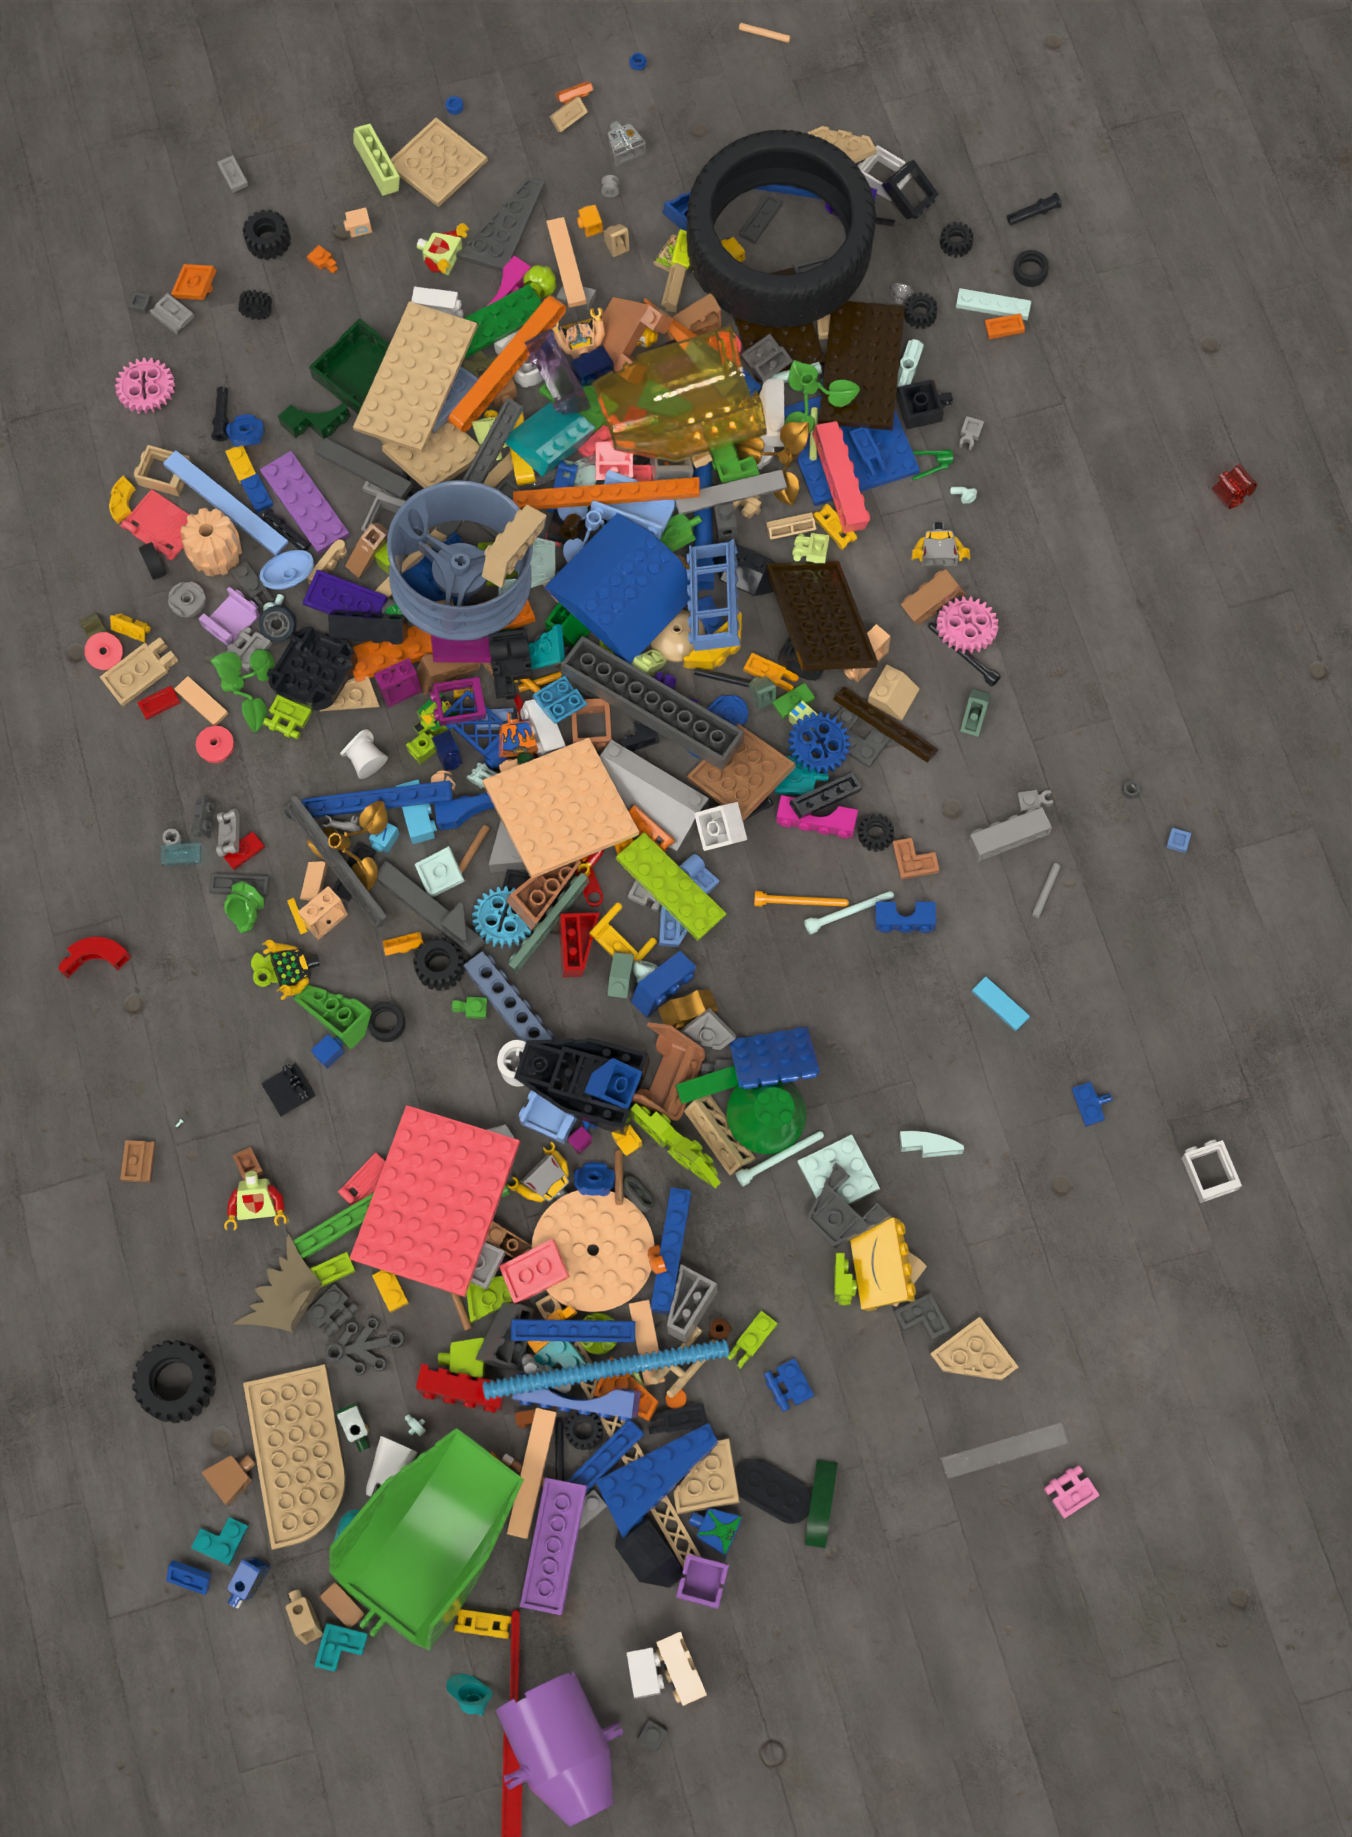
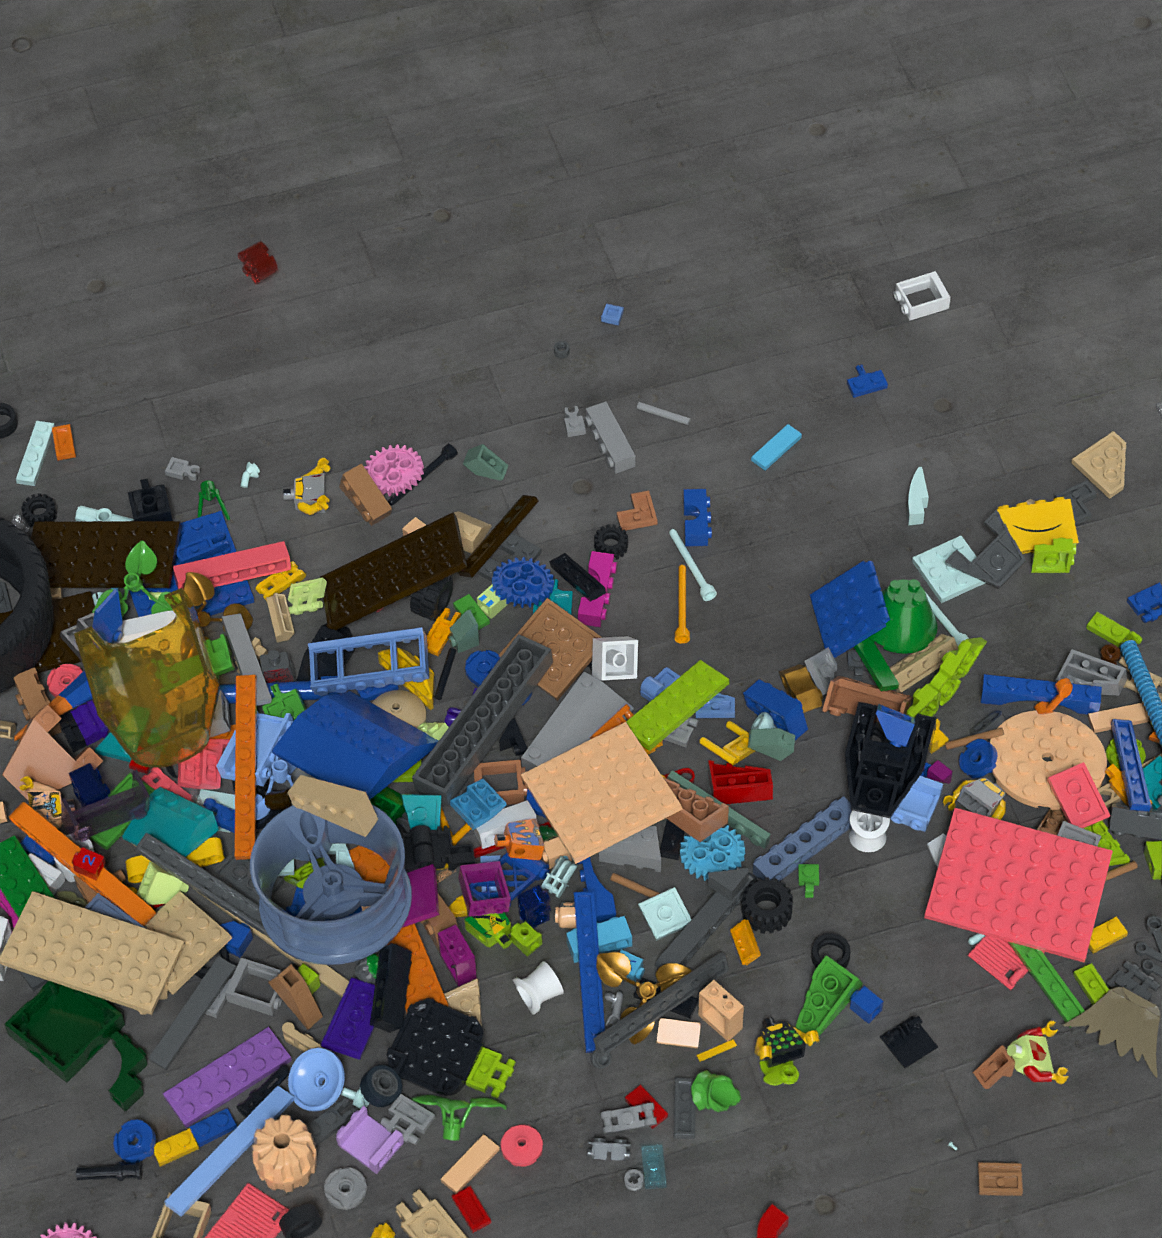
camera: 95 degrees left, 15 degrees down
(497, 363) = (88, 863): none -> red brick
(773, 369) = (108, 618): none -> blue slope

